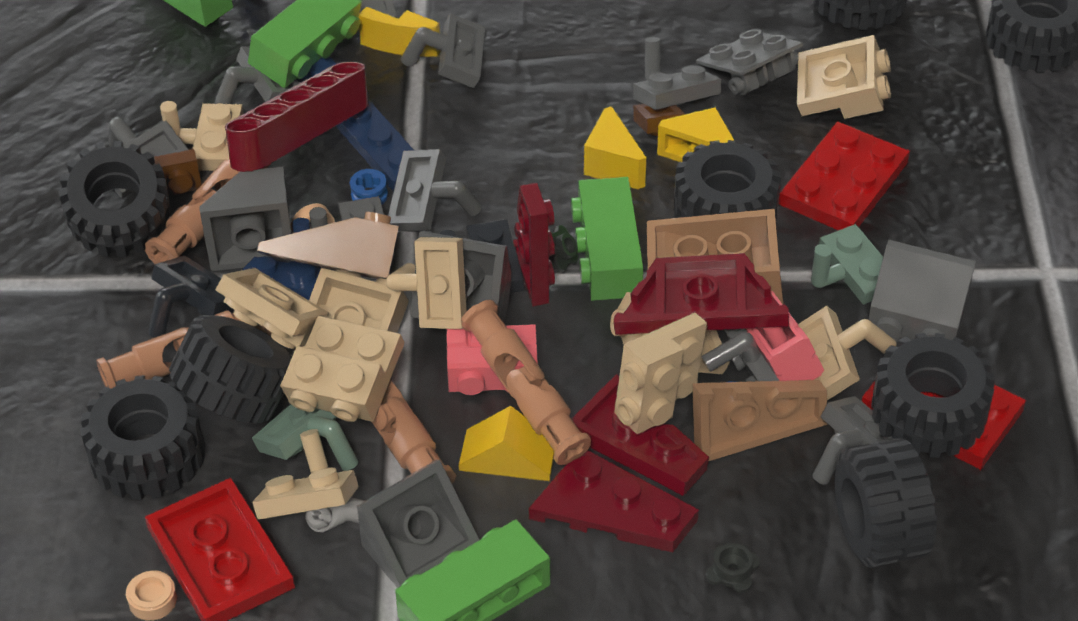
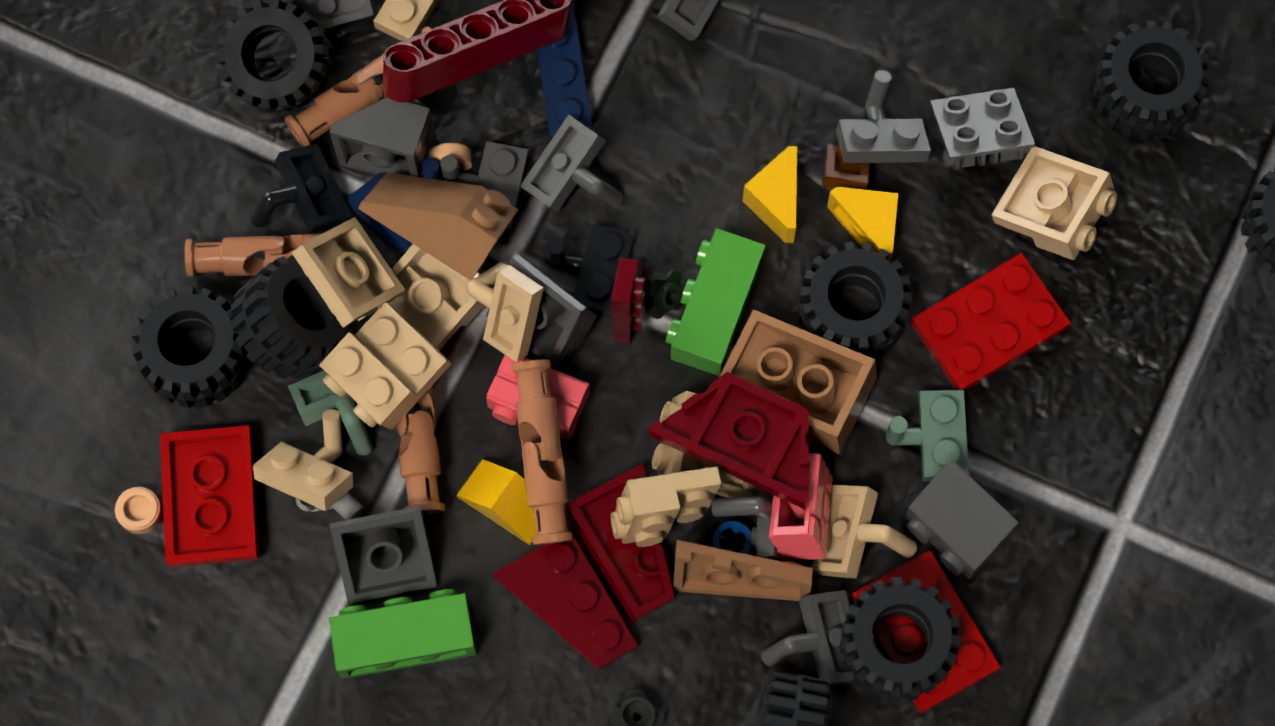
camera: 25 degrees right, 25 degrees up
(180, 171) = (352, 38): reddish brown plate -> none
(368, 179) = (525, 118): blue bush -> none

